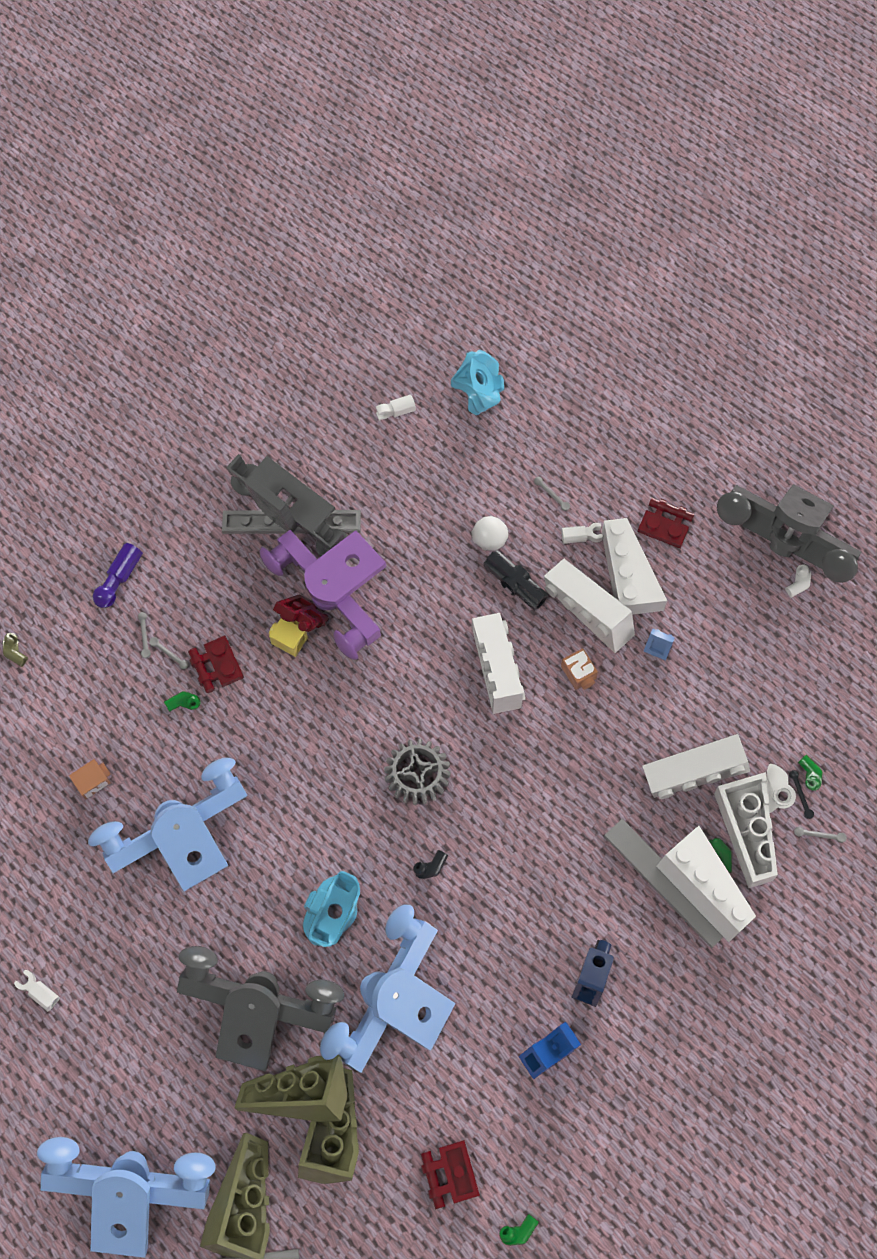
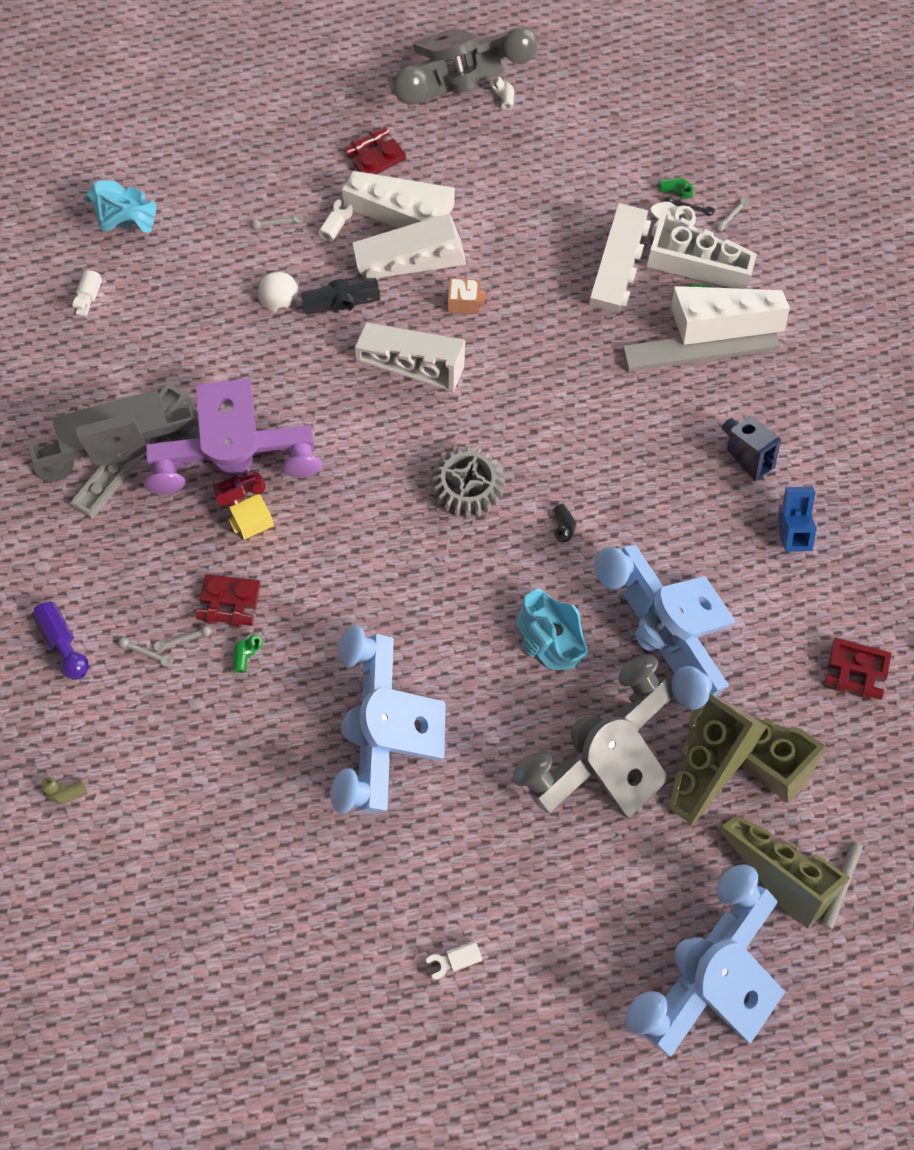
camera: 60 degrees left, 0 degrees up
(90, 778) = (265, 784): nougat brick -> none
(659, 644) = (485, 223): medium blue tile -> none

